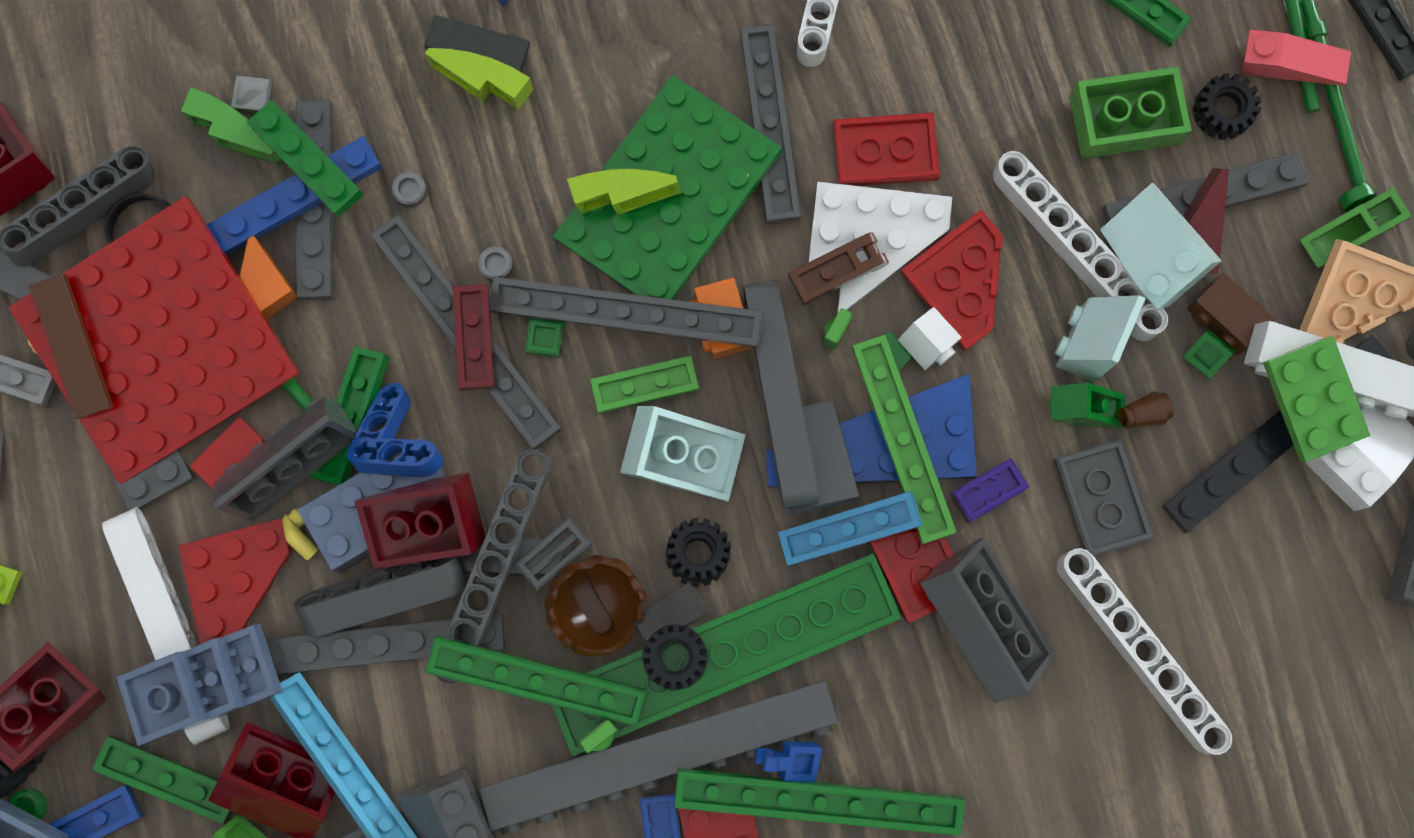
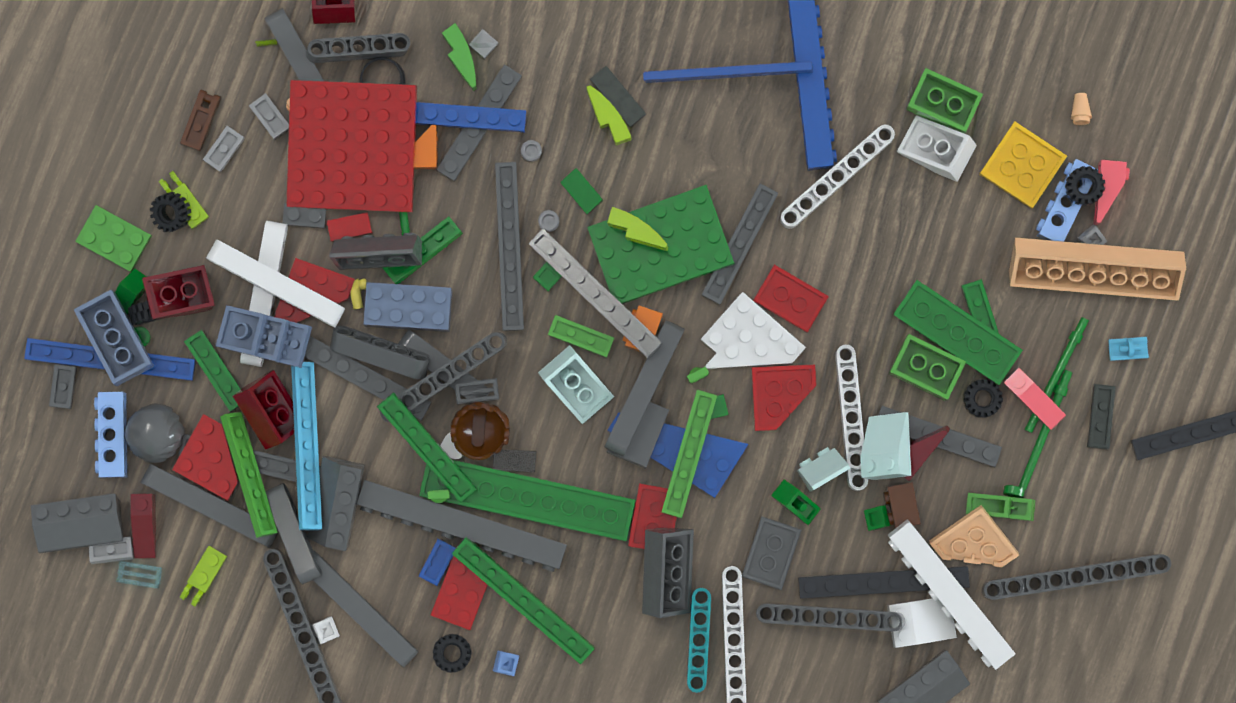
camera: 35 degrees right, 5 degrees up
(71, 346) = (309, 123): reddish brown tile -> none
(166, 598) = (275, 283): none -> white beam
(305, 158) = (488, 103): green plate -> none
(391, 407) = (429, 279): blue beam -> none
(421, 522) = (423, 332): dark red slope -> none
(473, 337) = (511, 254): dark red plate -> none
(513, 195) = (581, 191): none -> green slope
(570, 660) = (449, 448): none -> white tile
(652, 657) = (492, 492): black tyre -> none
(698, 532) = (540, 448): black tyre -> none
(795, 764) = (524, 573): blue plate -> none
(837, 268) = (718, 345): reddish brown plate -> none
(850, 528) = (631, 479): dark azure plate -> none
(930, 339) = (740, 413): white brick -> none
(989, 490) = (716, 509): dark purple plate -> none
(1112, 693) = (699, 650): none -> teal beam
(1134, 41) = (958, 332): none -> green plate
(1147, 411) = (823, 524): reddish brown cone -> none
(1272, 522) = (820, 617): none -> dark grey beam
(1316, 399) = (905, 576): bright green plate -> none

